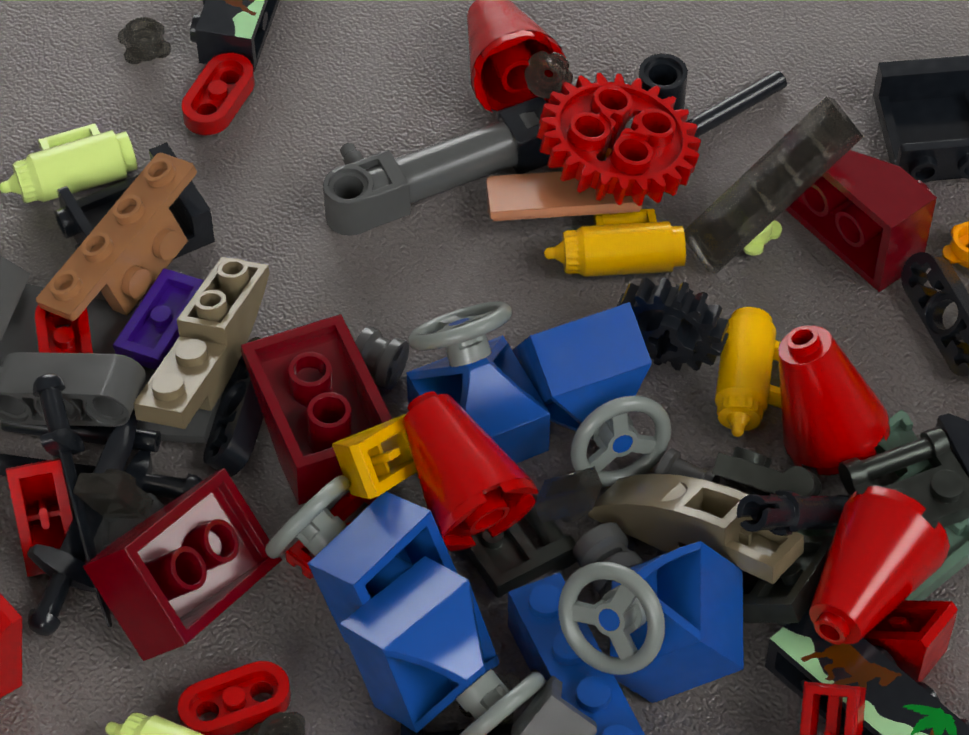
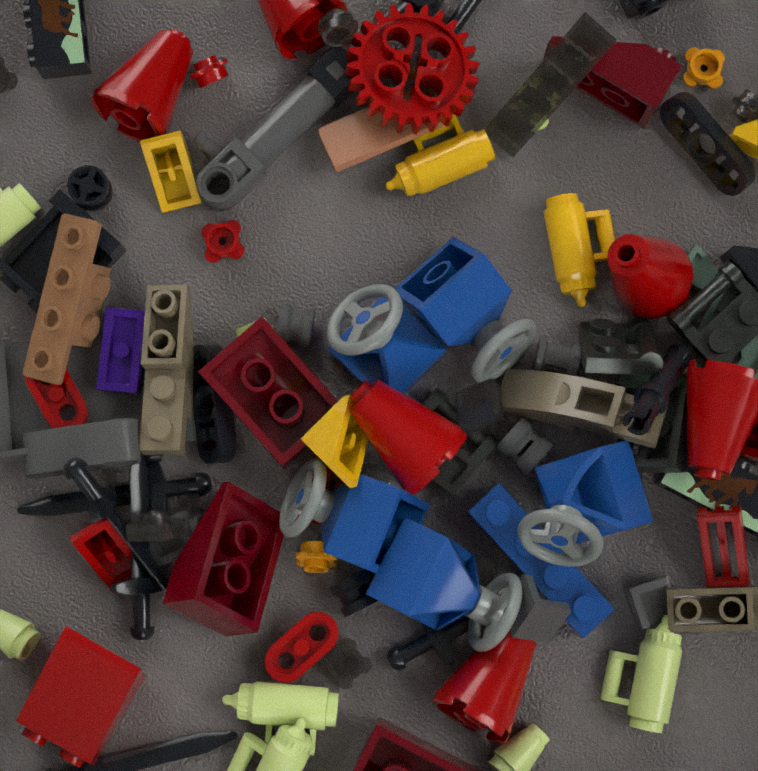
camera: 15 degrees left, 30 degrees up
(208, 158) = (82, 183): none -> black wheel
(211, 100) = (74, 115): red plate -> none
(297, 605) = (314, 558): none -> light orange plate
(300, 165) = (171, 171): none -> yellow slope
(305, 85) = (146, 86): none -> red cone
(327, 660) = (353, 593): none -> black wheel
(330, 245) = (214, 233): none -> red plate
(386, 94) = (209, 71): none -> red plate
(677, 323) = (508, 234): black gear -> none

